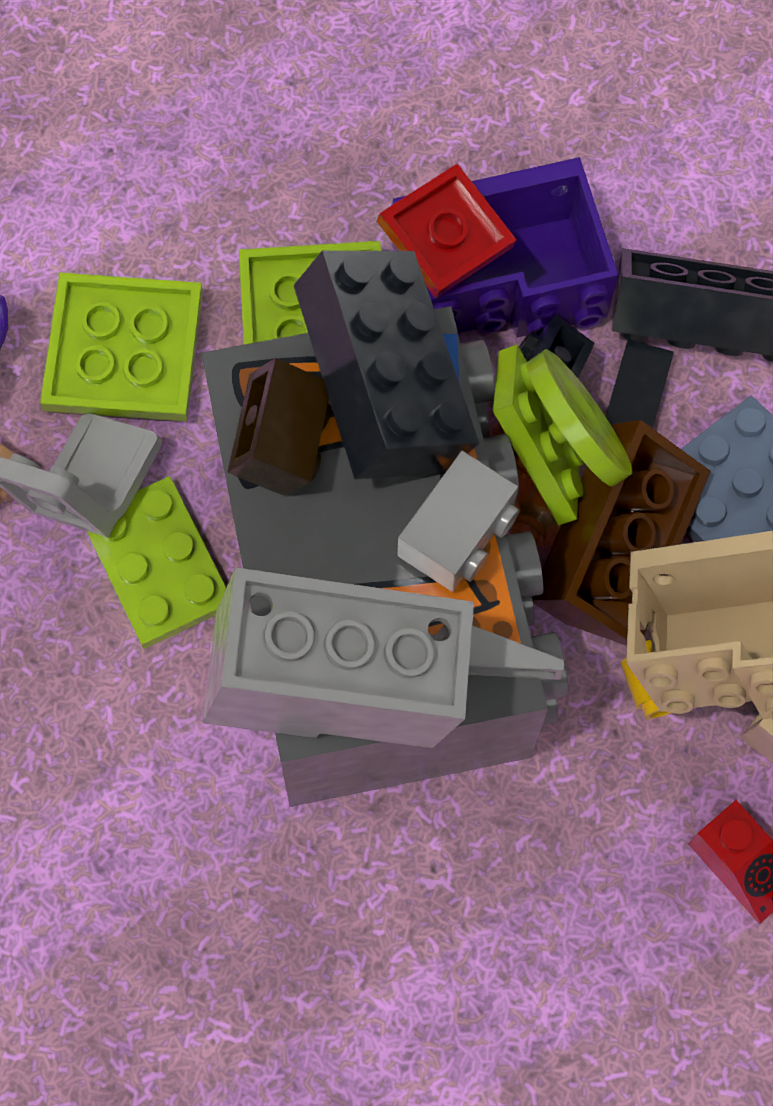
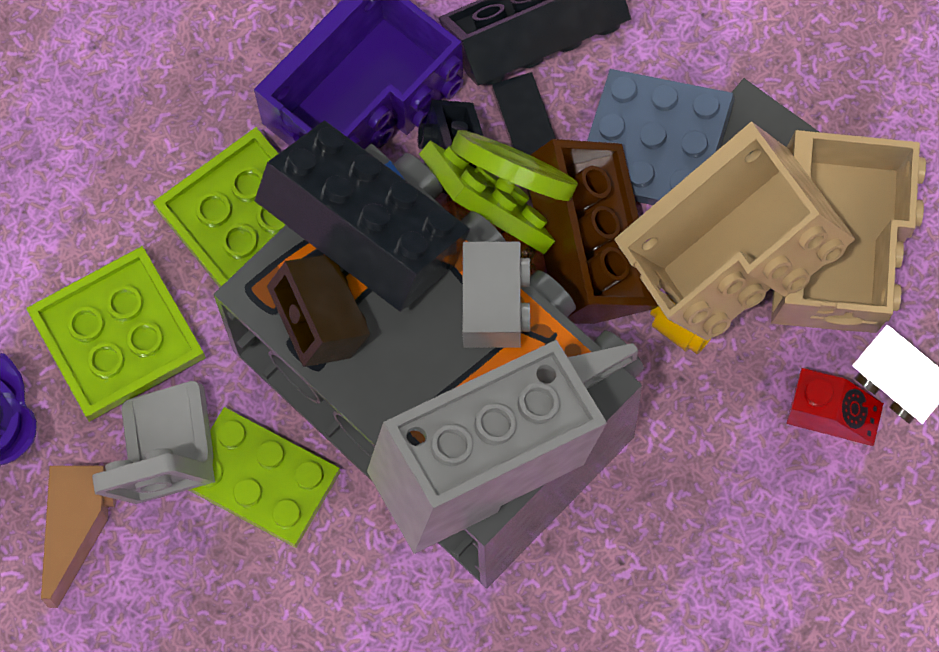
camera: 30 degrees left, 0 degrees up
(447, 229) = (313, 86): red plate -> none

